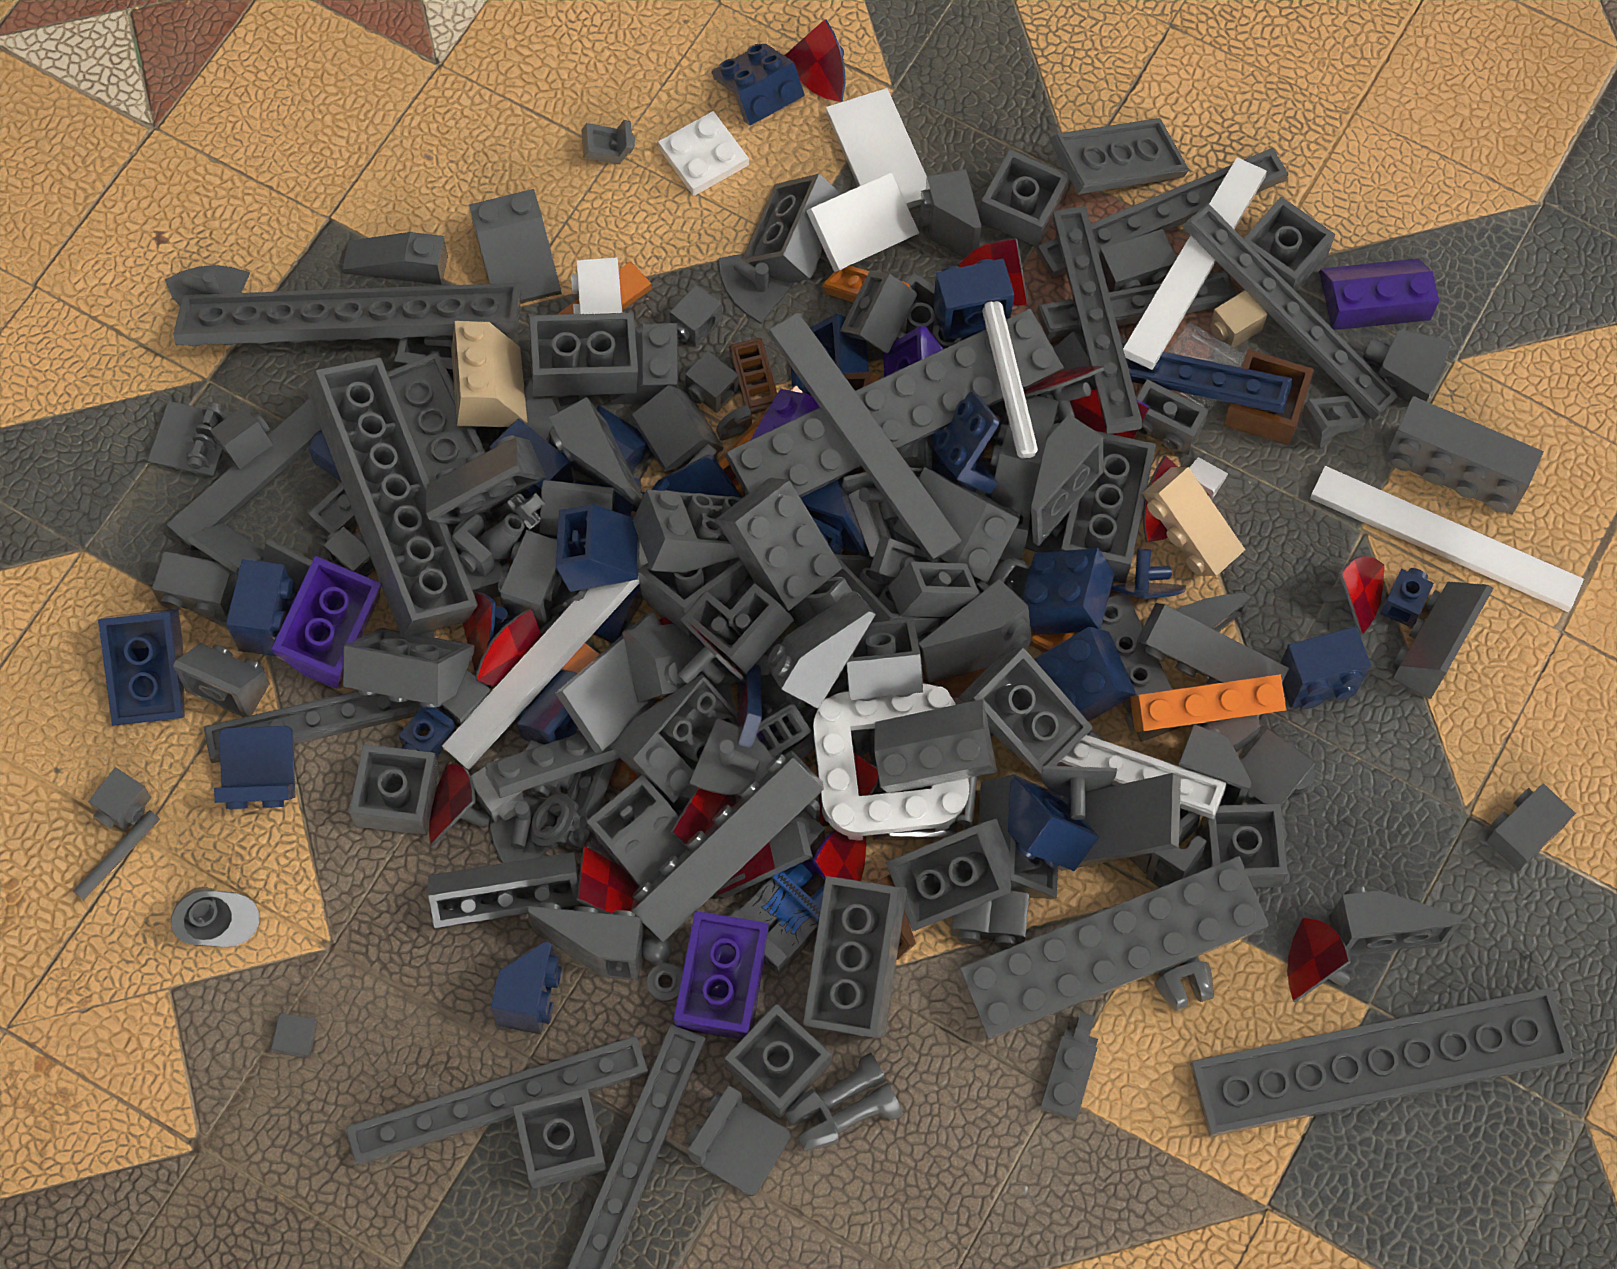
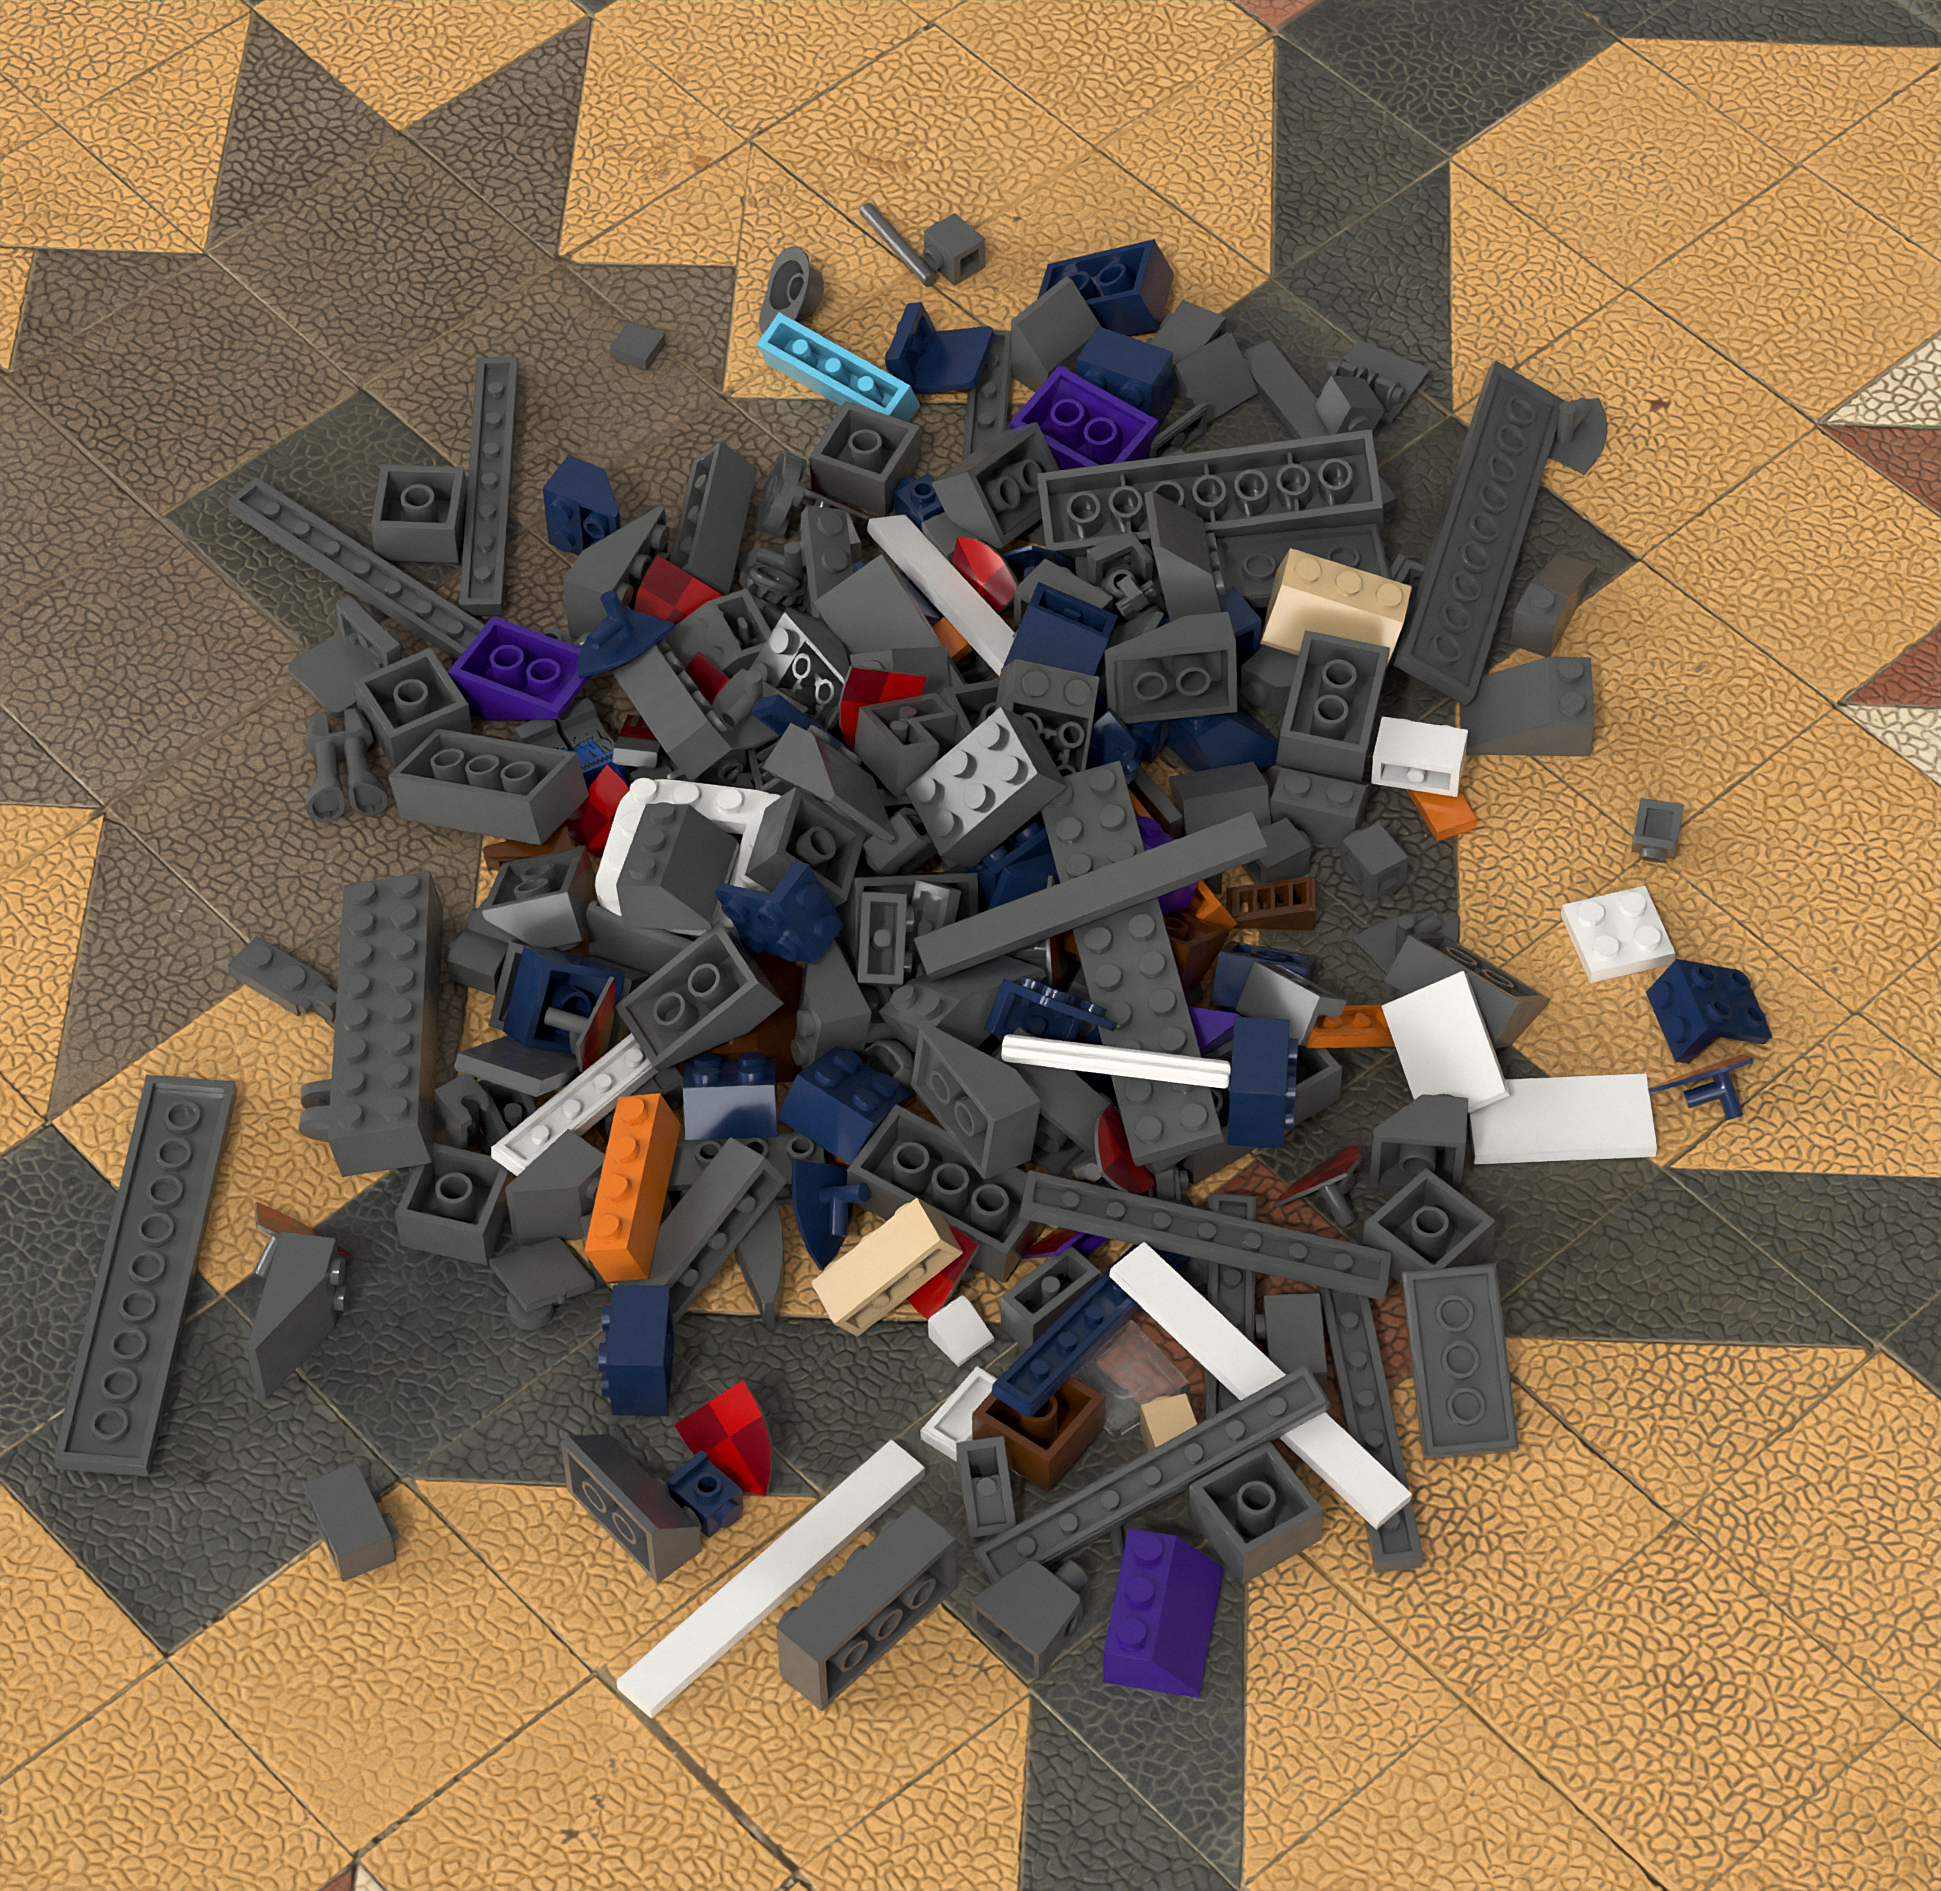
camera: 110 degrees right, 15 degrees down
(303, 842) = (834, 370): none -> medium azure brick
(441, 835) = (783, 490): none -> dark grey plate
(682, 894) = (619, 637): none -> dark blue shield
(953, 626) = (789, 922): none -> dark blue bracket
(1266, 456) = (954, 1418): none -> white tile

